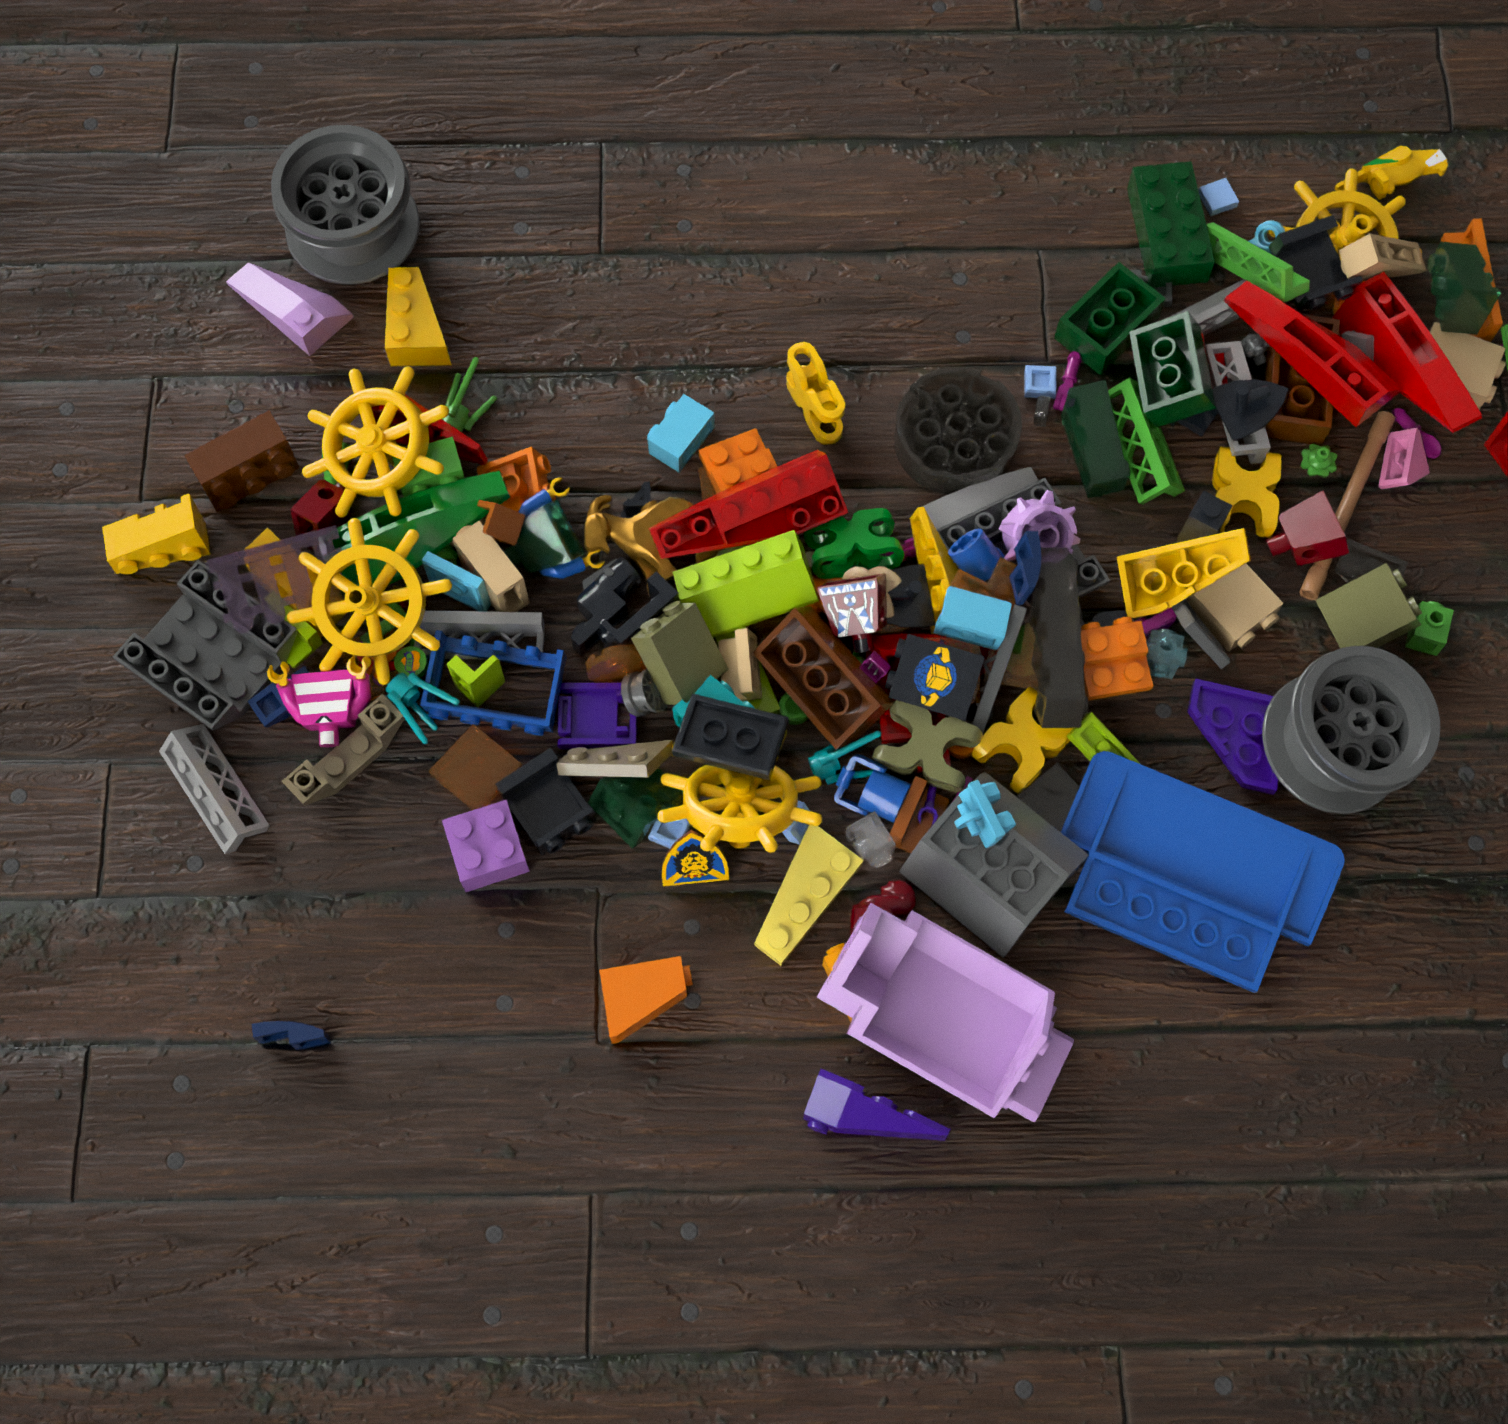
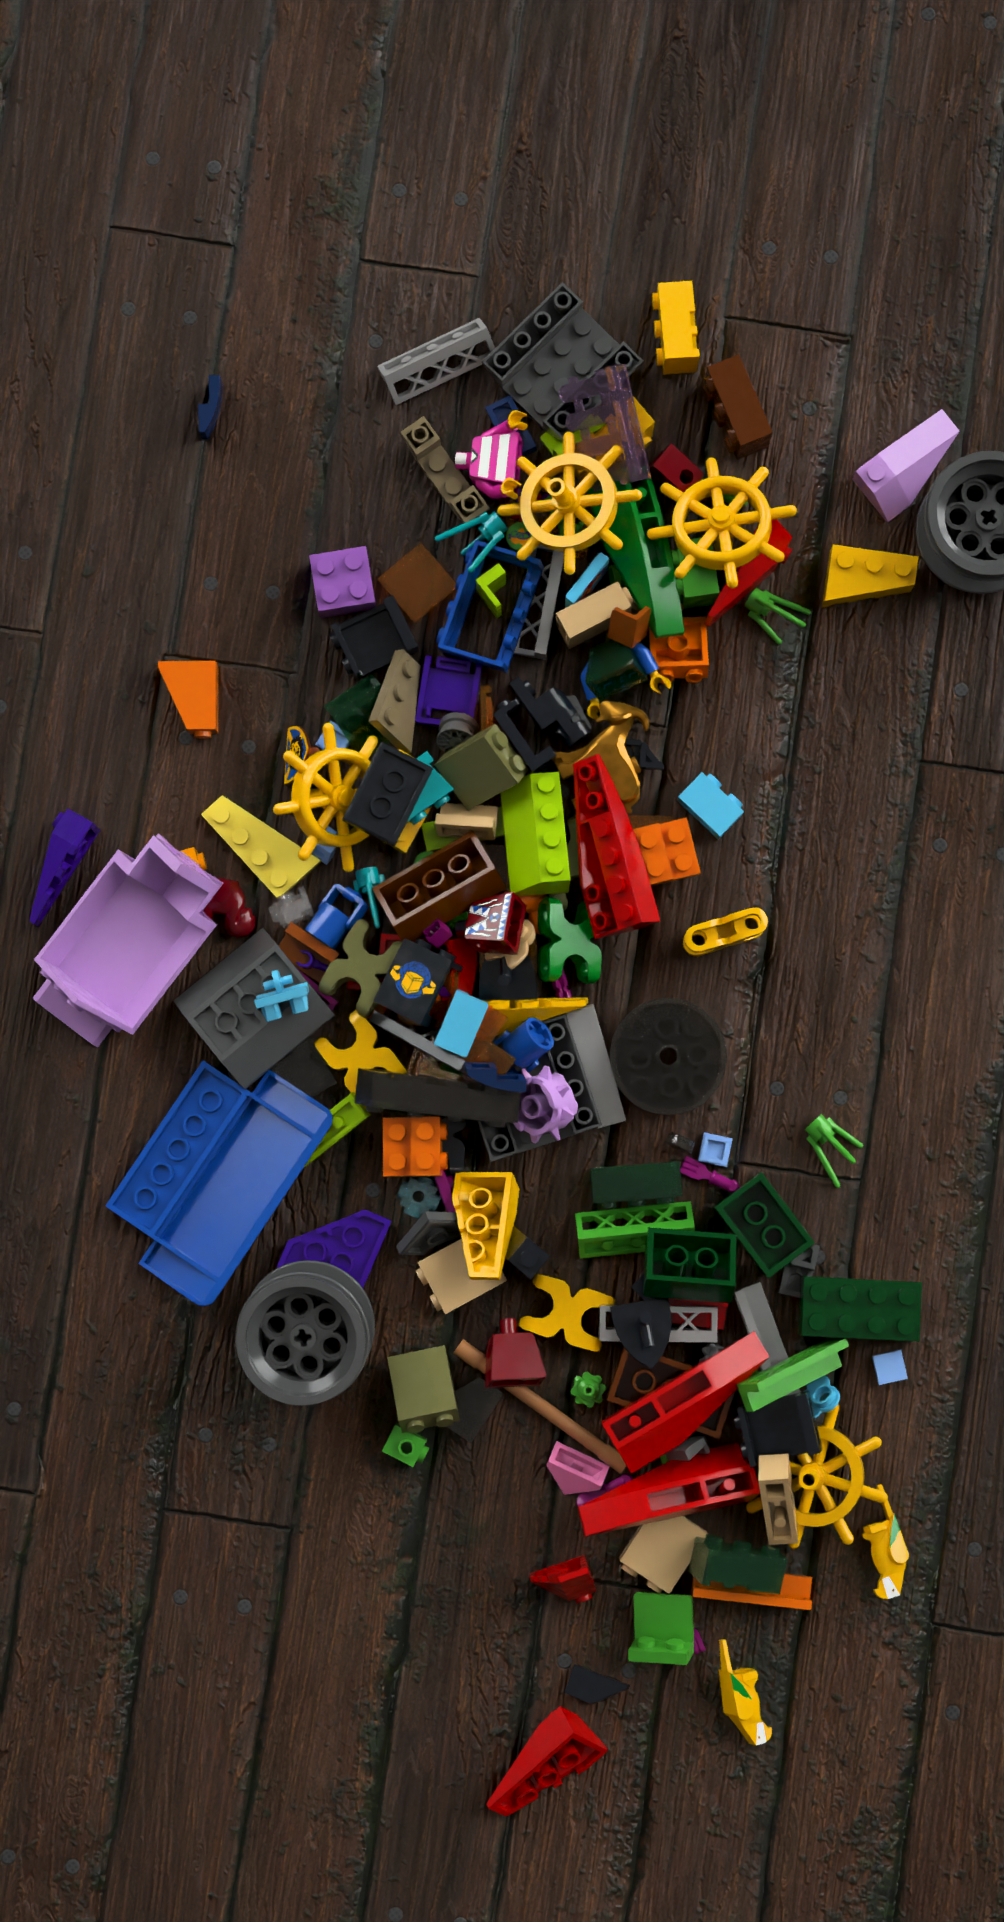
camera: 105 degrees right, 15 degrees up
(999, 283) = (823, 1131): none -> bright green plant

